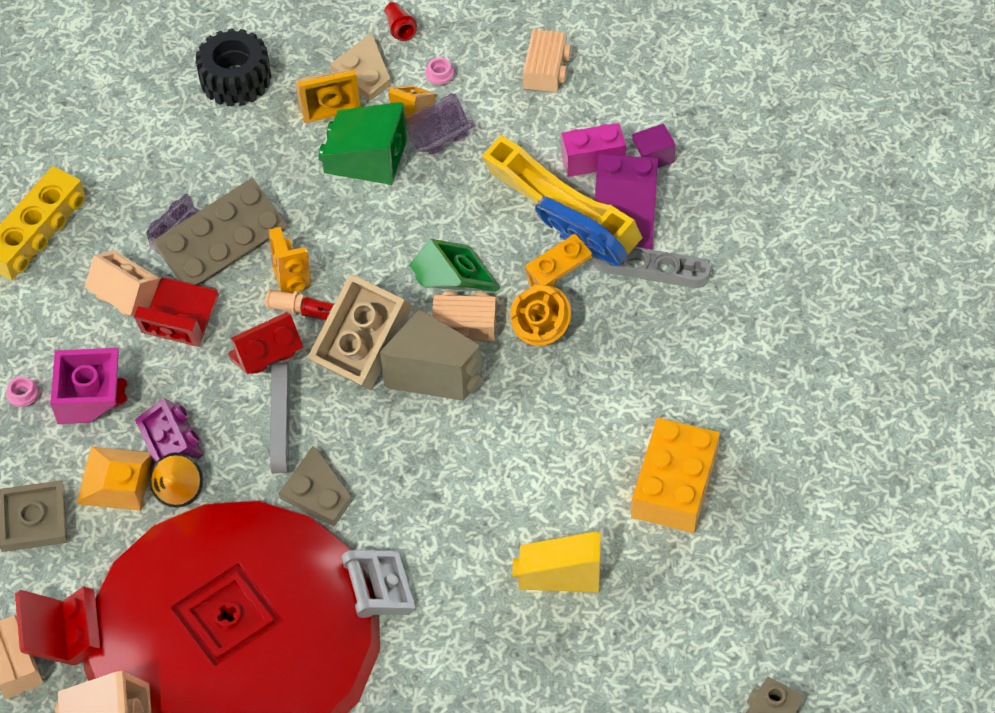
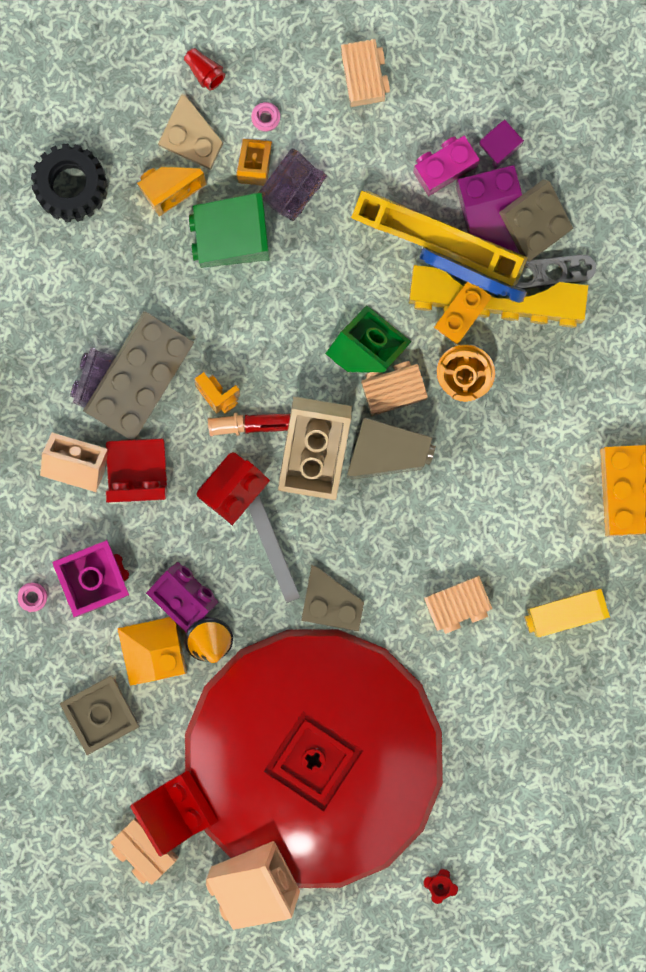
camera: 20 degrees left, 30 degrees up
(387, 580) = (429, 676): light grey plate -> none
(447, 525) = (458, 604): none -> light nougat brick
(656, 290) = (559, 303): none -> yellow arch
(663, 212) = (536, 220): none -> dark tan plate

